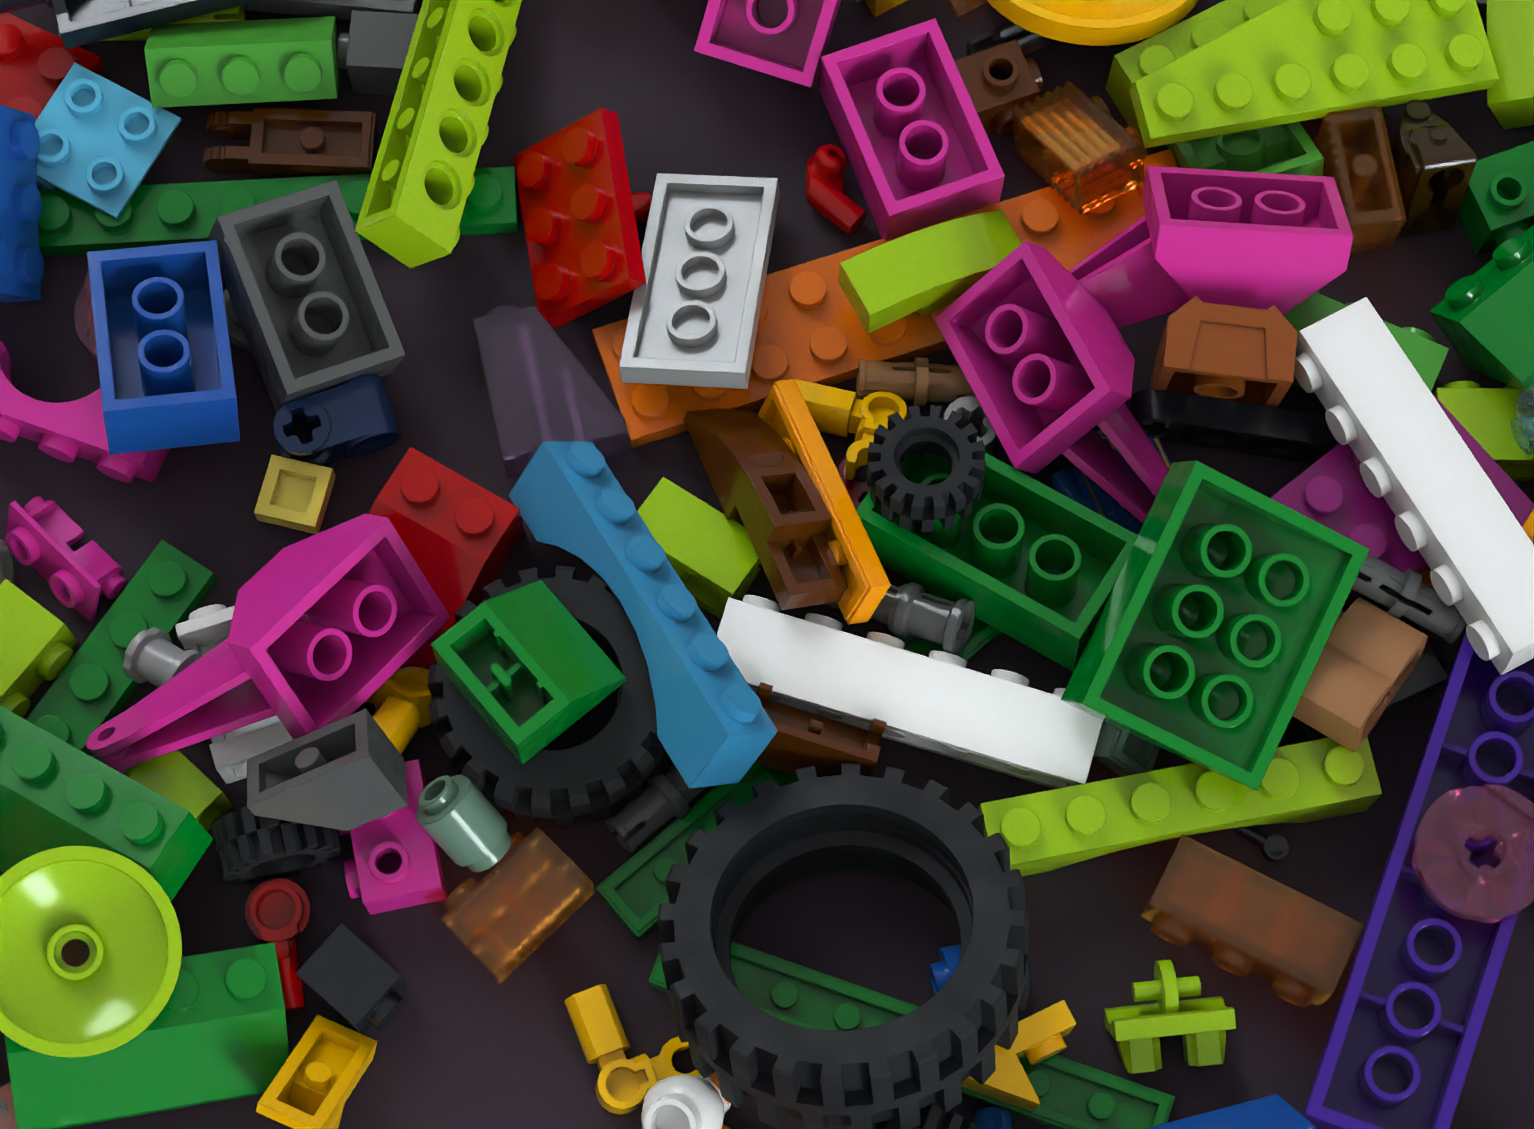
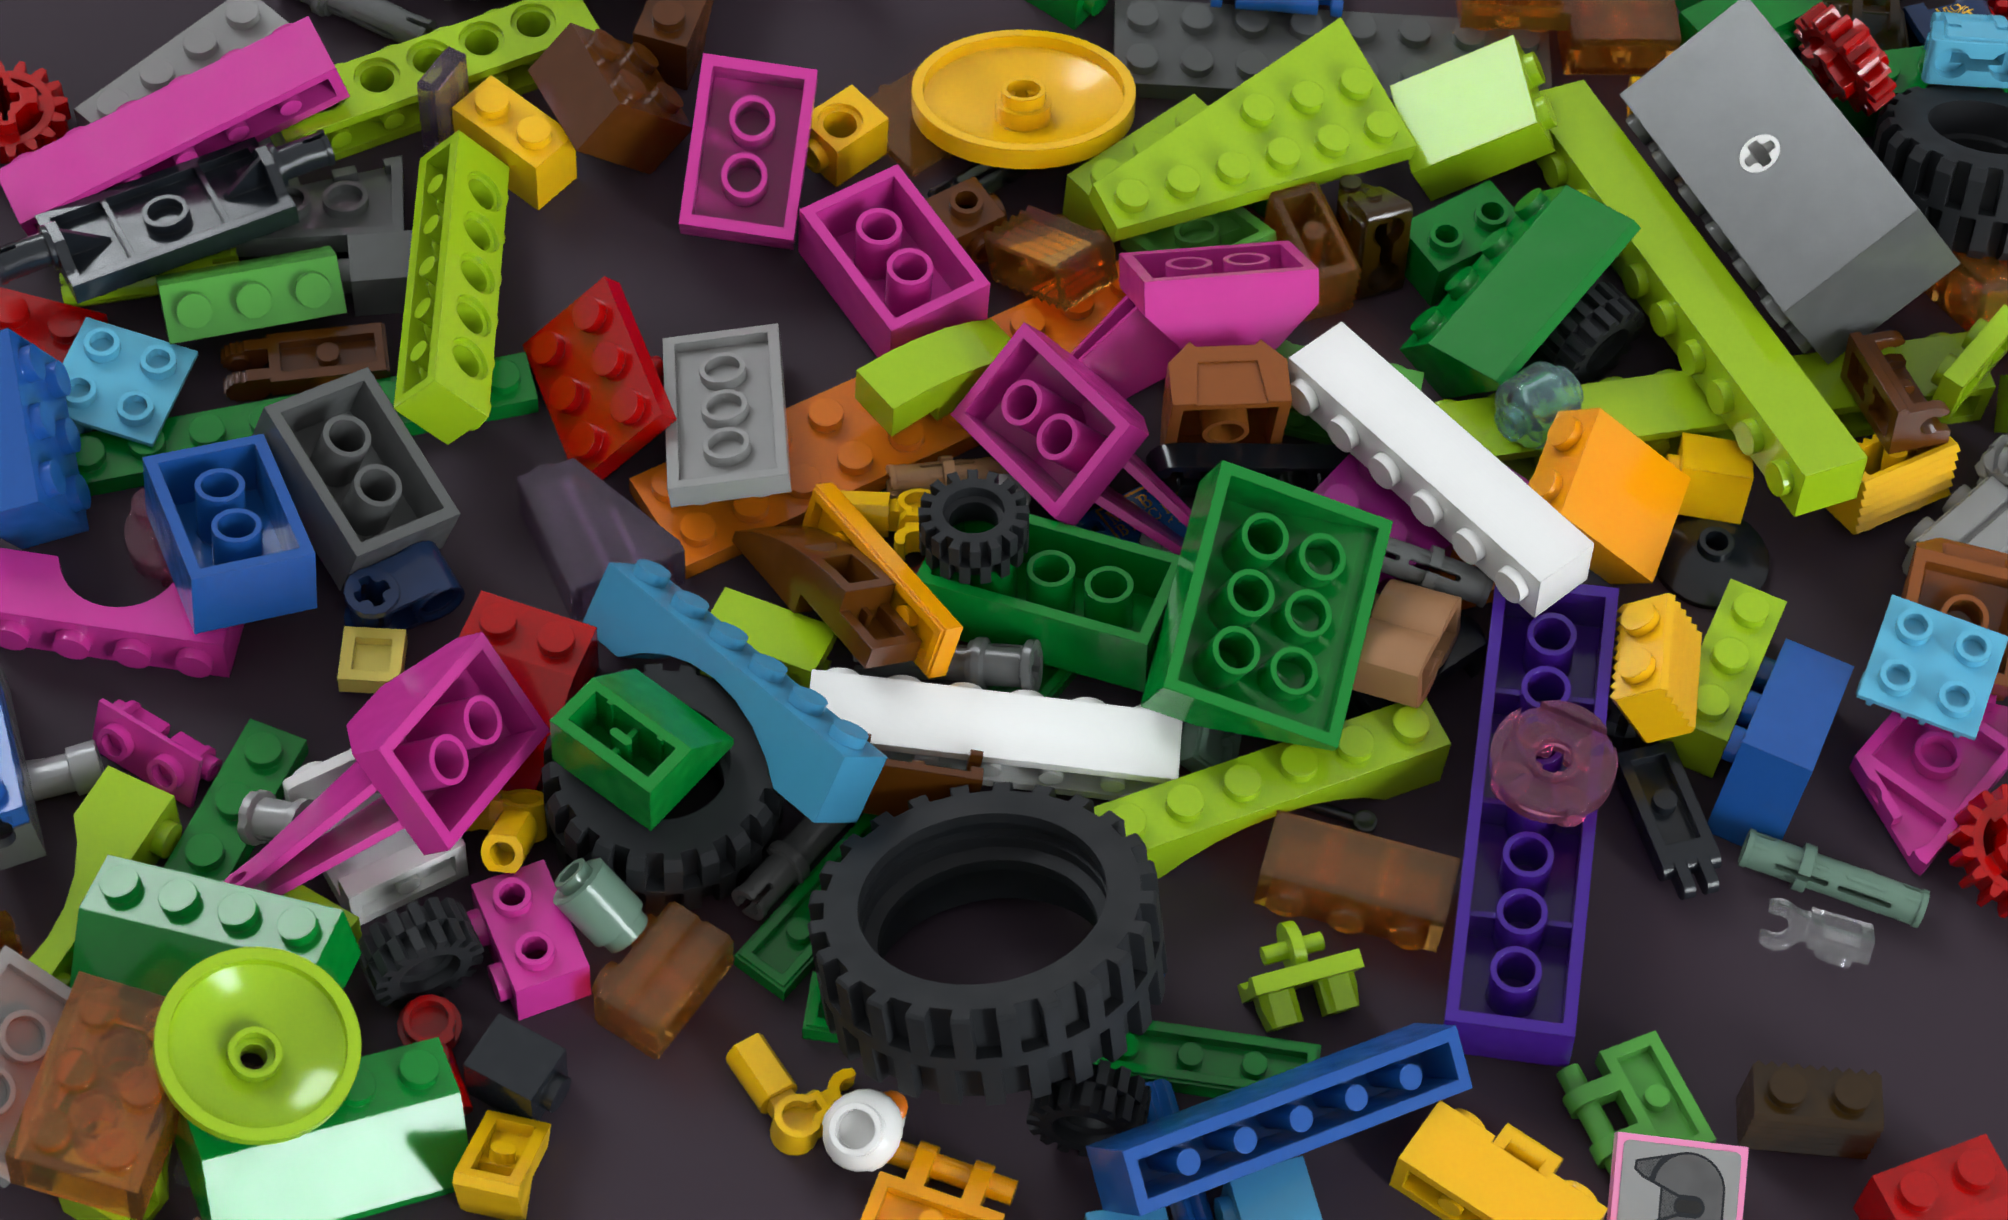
camera: 15 degrees left, 15 degrees down
(330, 776) = (469, 869): dark grey slope -> none
(826, 189) = (823, 332): red arm -> none
(1038, 1039) = (1164, 1045): yellow slope -> none

